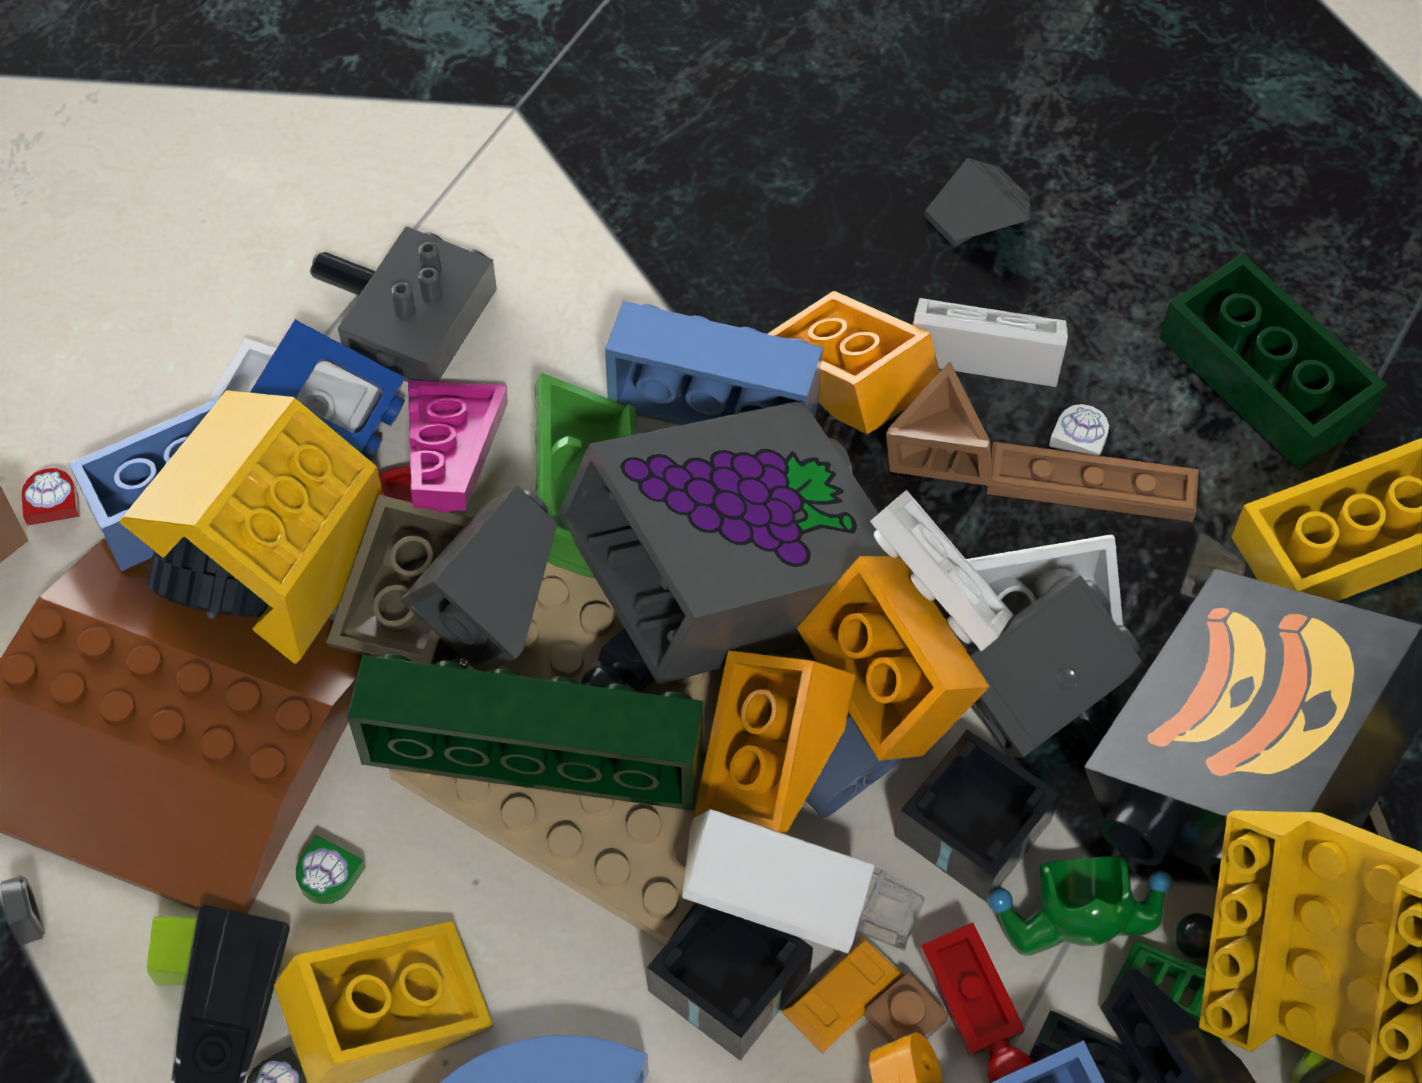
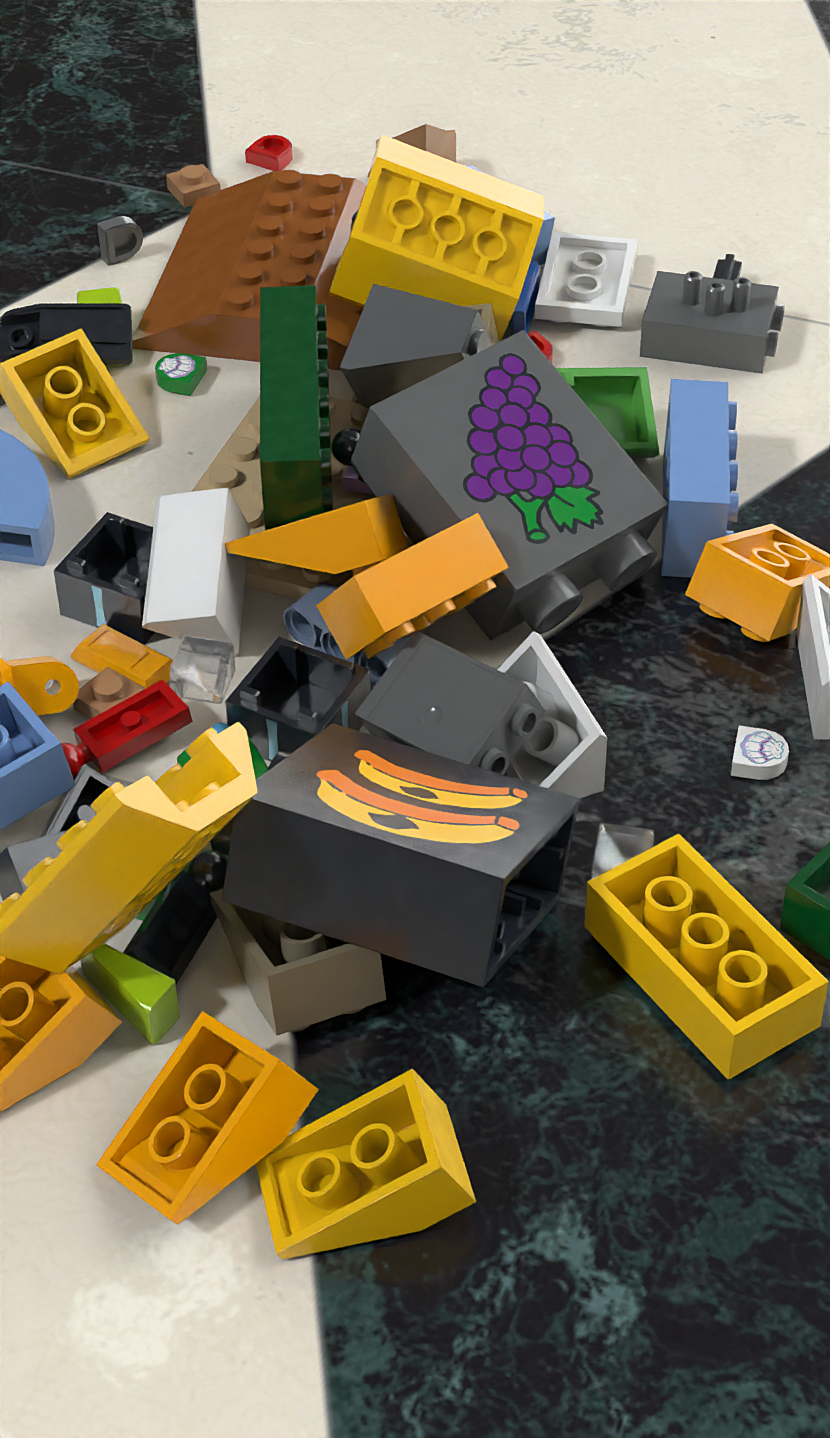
camera: 80 degrees right, 15 degrees down
(297, 358) = (591, 247): blue window -> none
(450, 439) = (562, 339): dark pink wing -> none
(941, 435) = (700, 635): medium nougat slope -> none
(941, 571) = (502, 588): white plate -> none
(1093, 481) = (704, 771): medium nougat tile -> none

